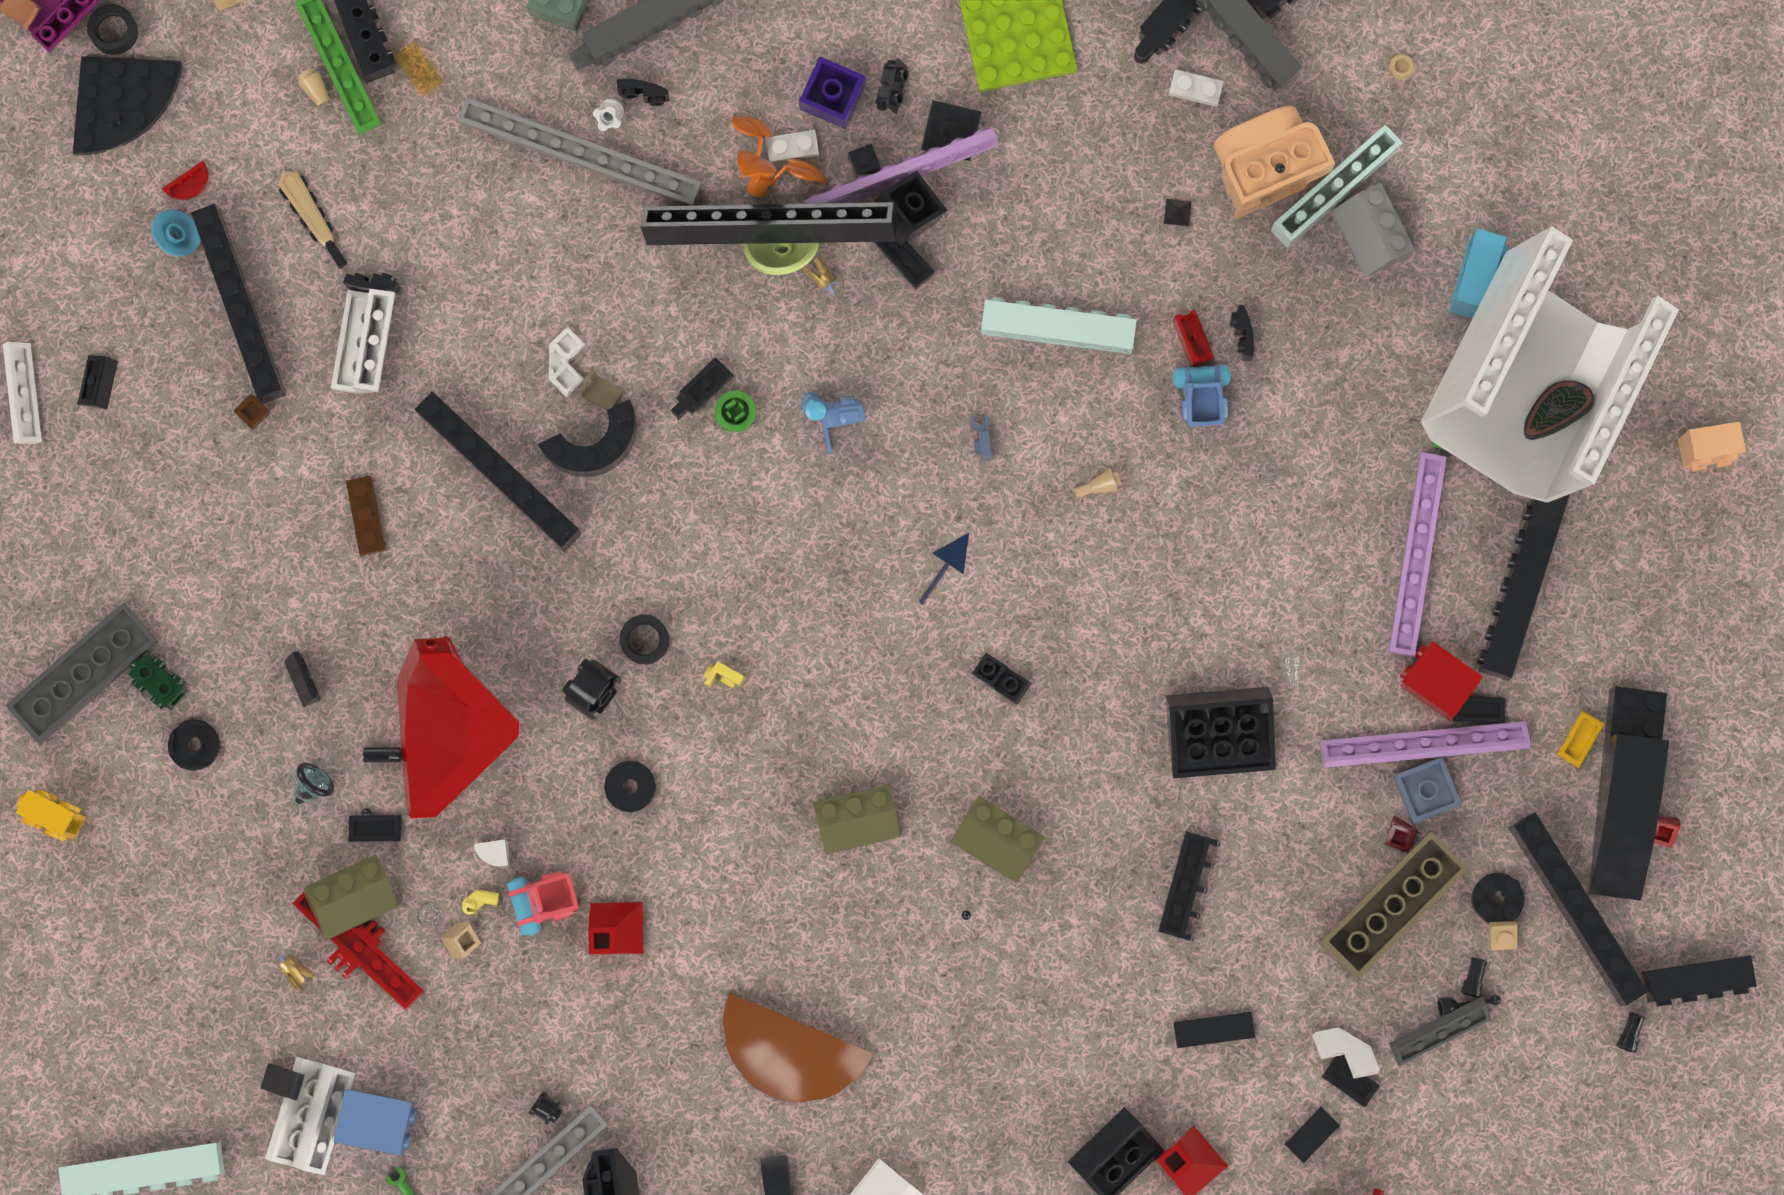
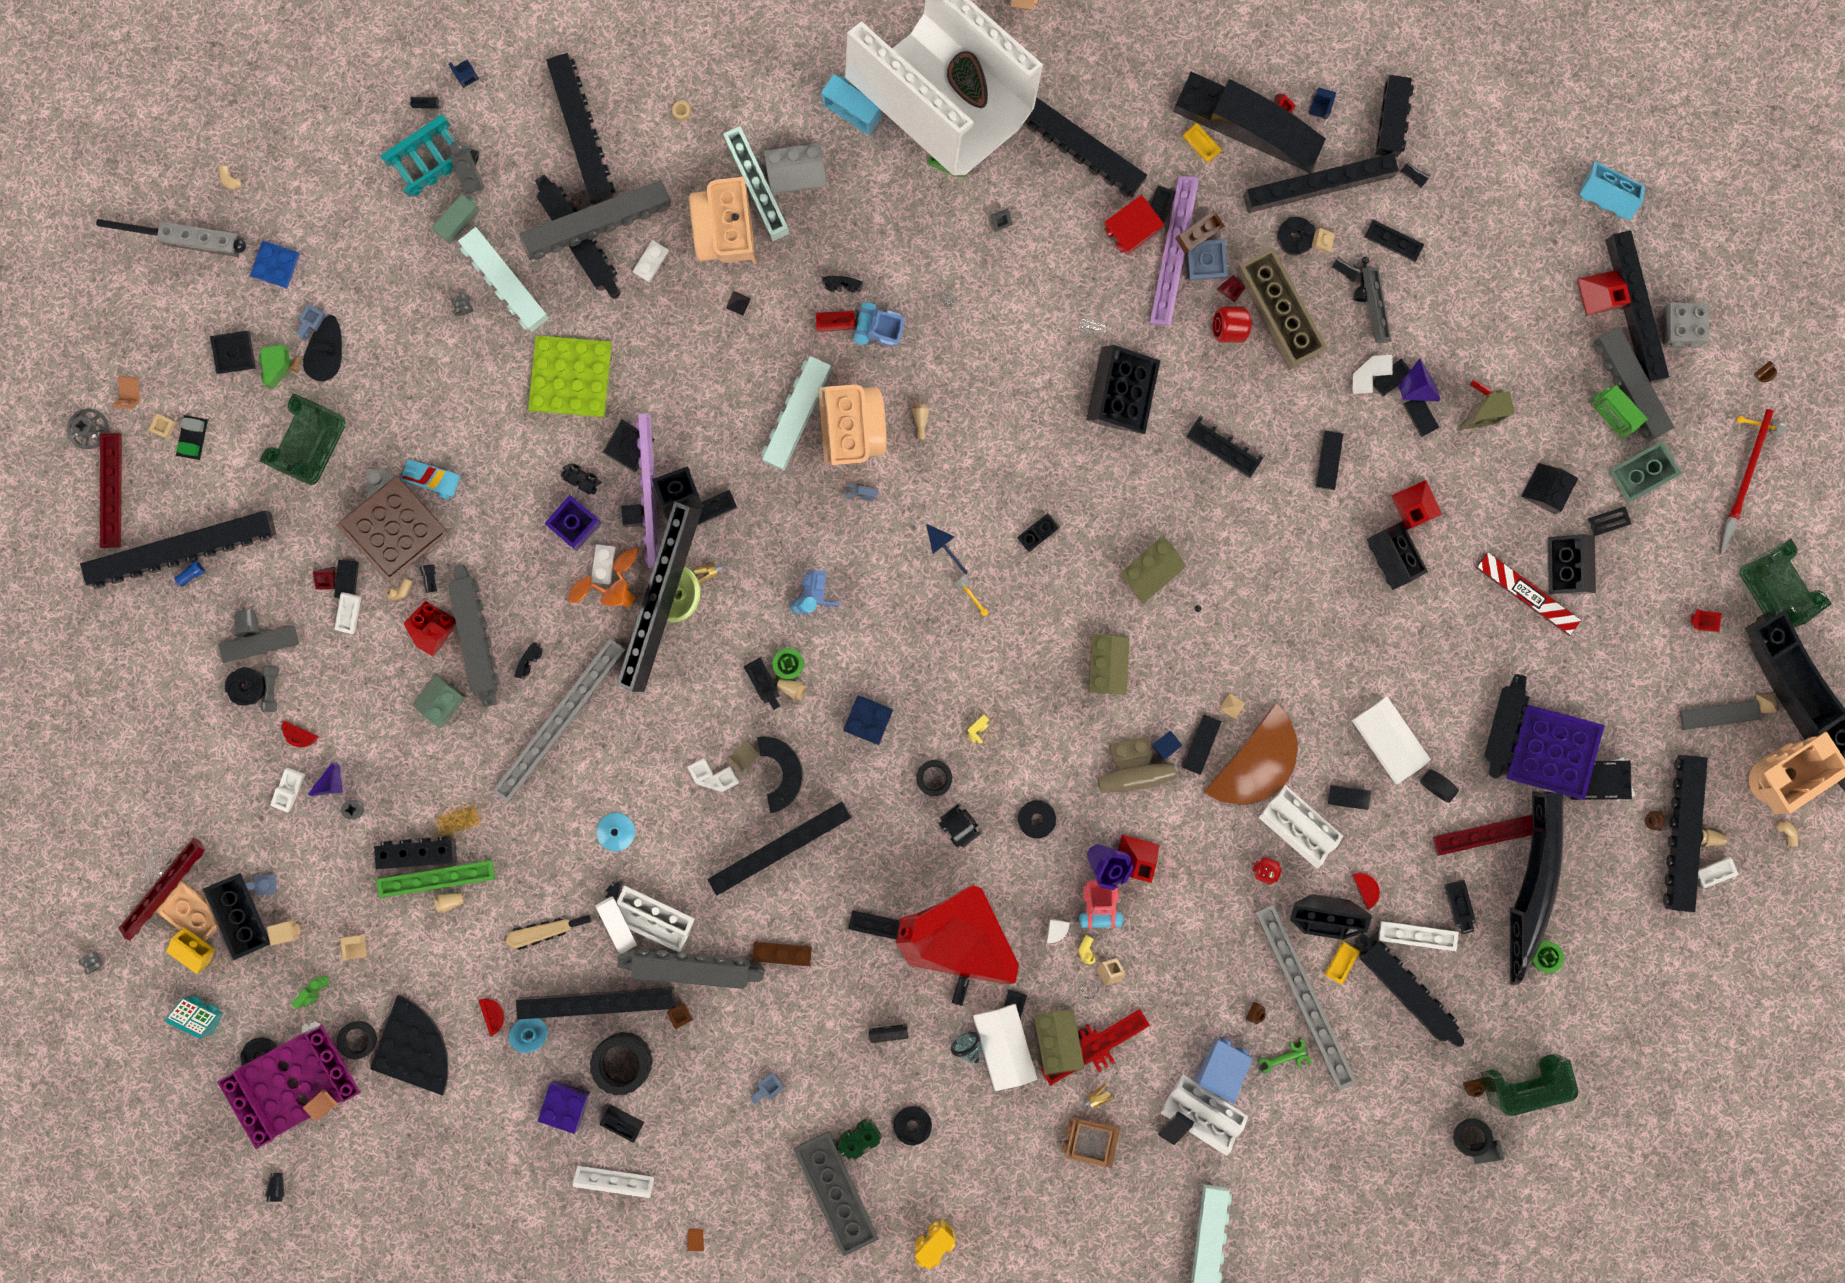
camera: 70 degrees left, 5 degrees up
(98, 303) = (563, 1107): none -> dark purple brick
(155, 331) = (599, 1073): none -> black tyre
(192, 548) = (768, 1087): none -> sand blue plate
(235, 977) = (1091, 1141): none -> window
(314, 407) = (690, 968): none -> dark grey hinge
(325, 831) = (1005, 1047): none -> white slope
(342, 297) = (616, 925): none -> white tile
(434, 612) = (874, 924): none -> black tile
(460, 276) = (625, 832): none -> medium azure dish
(460, 1146) = (1256, 1013): none -> reddish brown plate
(546, 1109) = (1249, 944): black brick -> none
(594, 893) = (1109, 866): none -> dark purple cone
(609, 114) = (538, 690): white brick -> none
(649, 1104) = (1267, 870): none -> red head
(693, 533) = (868, 720): none -> dark blue brick
(705, 427) = (792, 688): none -> tan cone
(720, 1132) = (1300, 826): none -> white slope
(732, 893) = (1134, 767): none -> dark tan plate
(774, 924) = (1166, 745): none -> dark blue panel
(789, 971) = (1202, 744): none -> black tile
(851, 997) = (1232, 706): none -> tan slope
(904, 601) = (962, 584): none -> hinge
(1064, 397) = (852, 423): none -> light nougat brick
(1351, 847) = (1231, 324): none -> red head
(1351, 1119) = (1419, 385): none -> dark purple slope
(1392, 509) = (1001, 219): none -> dark grey slope
(1417, 554) = (1038, 212): lavender plate -> none
(1459, 768) = (1199, 232): none -> reddish brown plate
(1534, 1030) = (1394, 240): none -> black tile
(1685, 880) = (1322, 103): none -> dark blue panel

